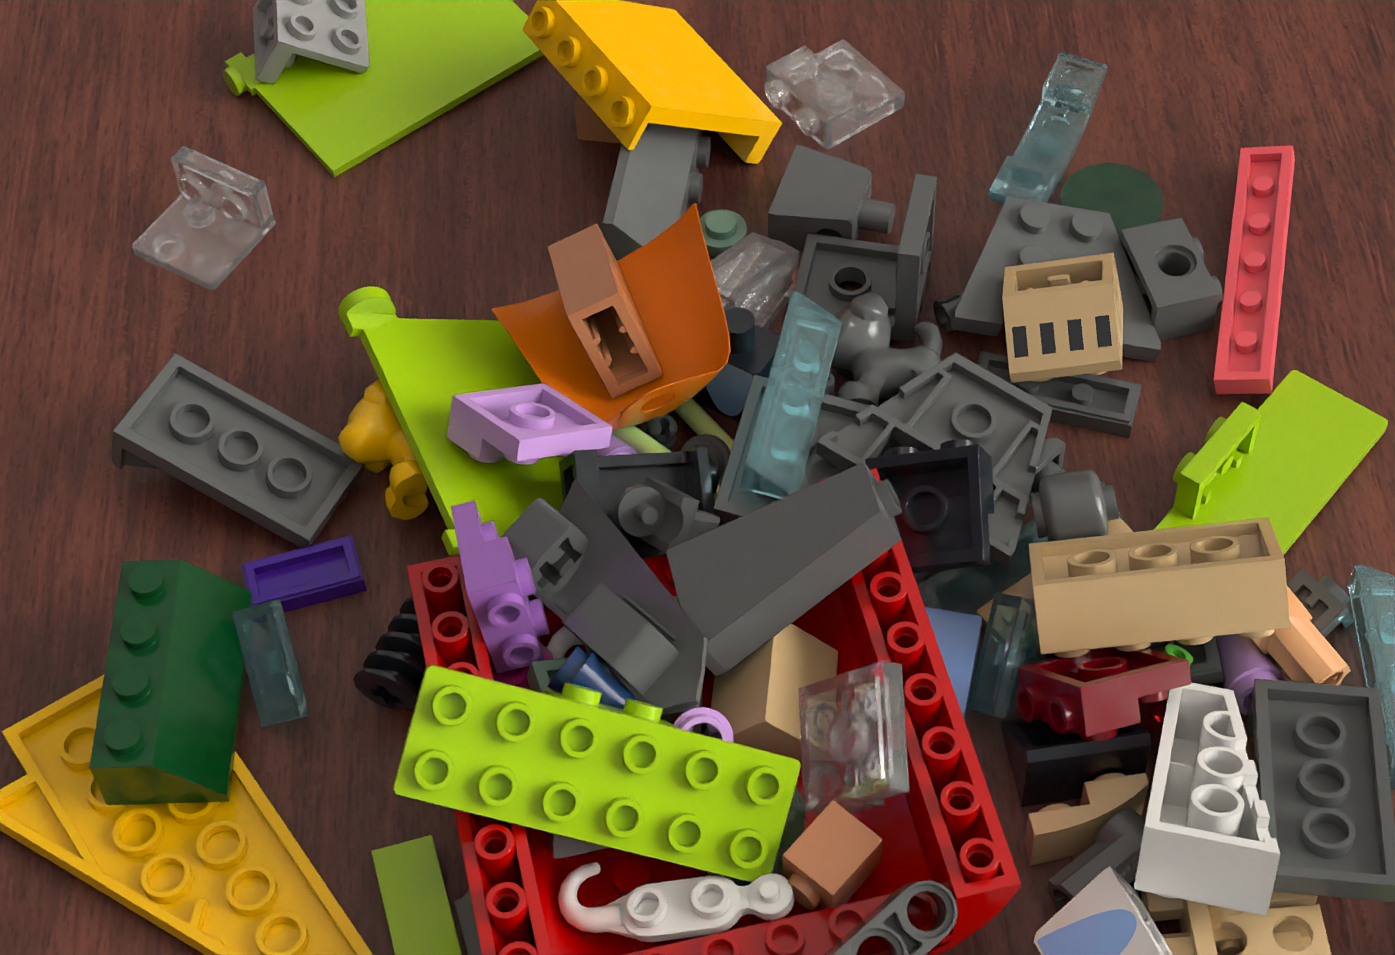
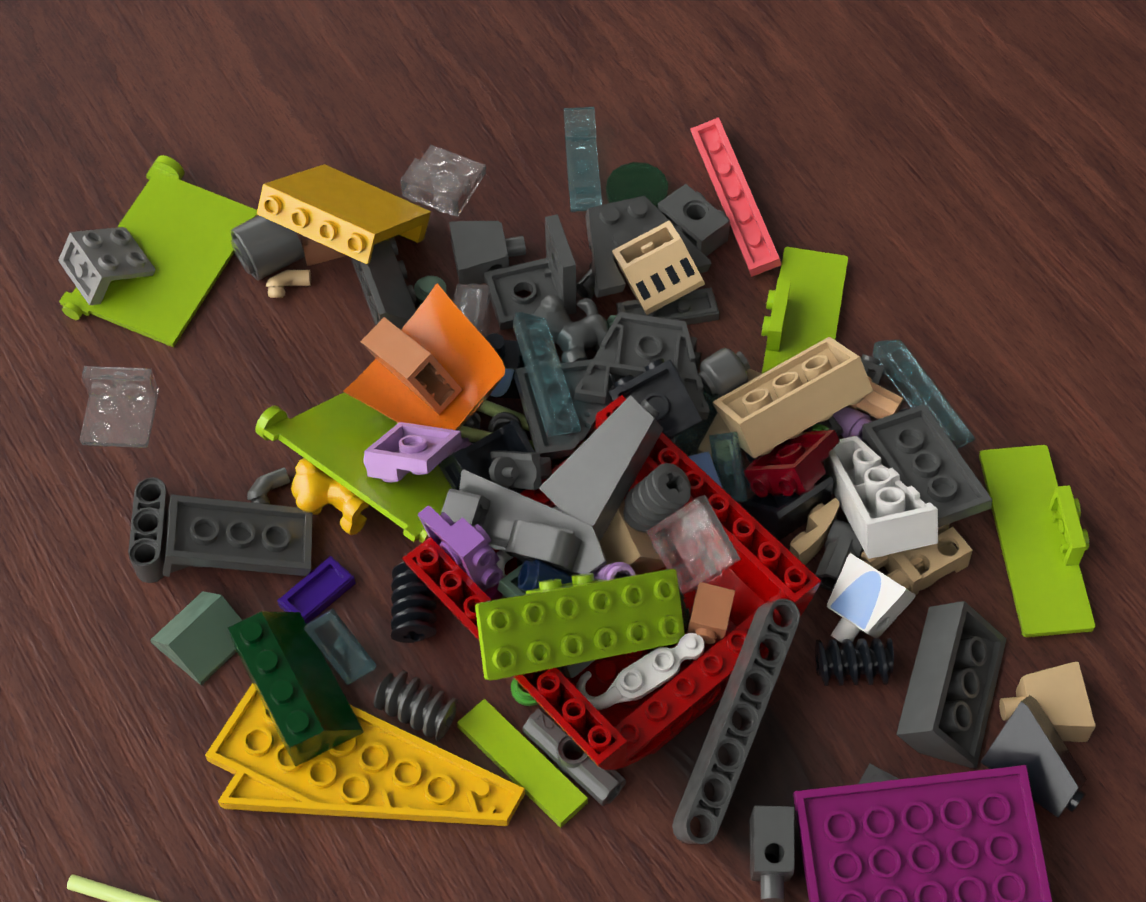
camera: 30 degrees left, 5 degrees up
(90, 564) = (199, 636): none -> sand green slope
(126, 386) = (148, 515): none -> dark grey beam
(326, 796) = (415, 705): none -> dark grey piece
(328, 400) = (266, 483): none -> dark grey arm
(523, 88) = (265, 246): none -> dark grey piece
(536, 143) = (287, 278): none -> tan arm
(833, 636) = (656, 497): none -> dark grey piece

